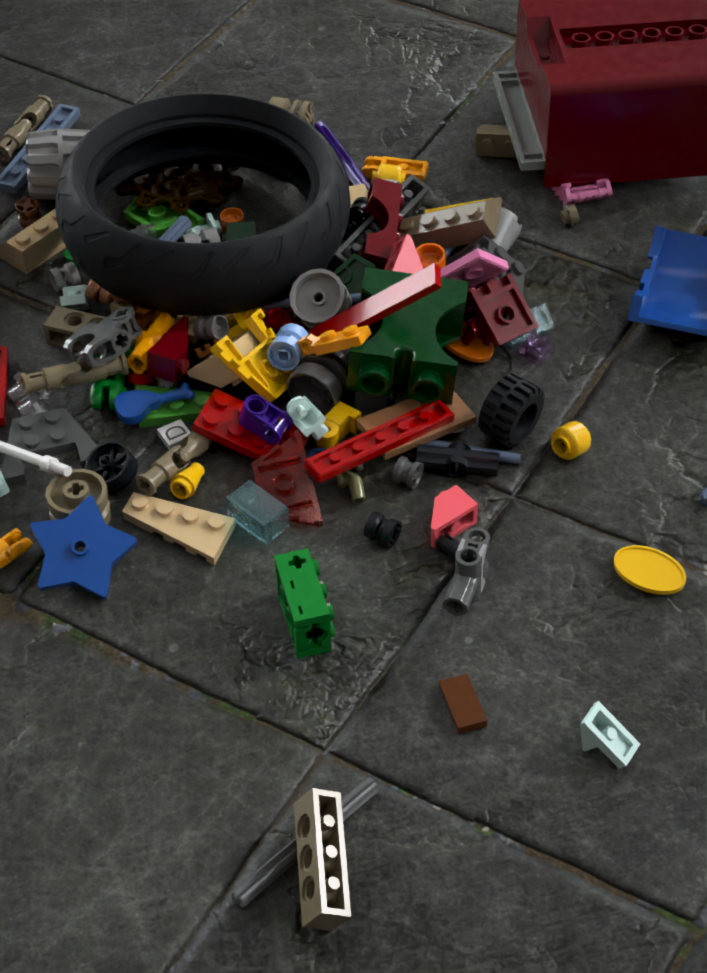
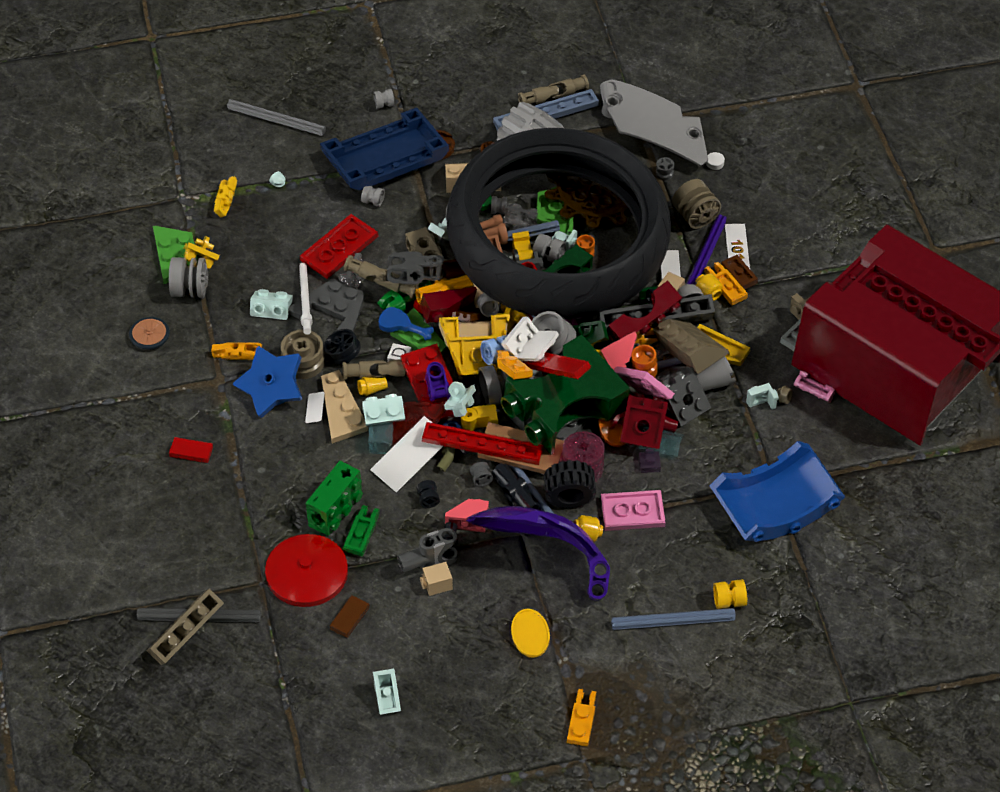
camera: 45 degrees right, 5 degrees up
(71, 688) = (191, 450): none -> red tile
(138, 83) = (653, 120): none -> light grey panel
(154, 545) = (314, 407): none -> white sticker
(242, 485) = (383, 410): none -> light aqua bracket
(249, 89) = (715, 161): none -> white tile
(315, 513) = (405, 457): none -> white sticker
(326, 311) = (527, 342): none -> white bracket
(357, 699) = (306, 570): none -> red dish
(364, 141) = (737, 241): none -> white sticker
(364, 616) = (361, 532): none -> green hinge
(396, 150) = (740, 271): none -> reddish brown plate
(478, 375) = (585, 448): none -> clear pink wheel
(500, 594) = (436, 579): none -> tan brick
(557, 223) = (762, 394): none -> light aqua bracket
(581, 396) = (632, 510): none -> bright pink tile
(581, 442) = (541, 523): none -> dark purple windscreen

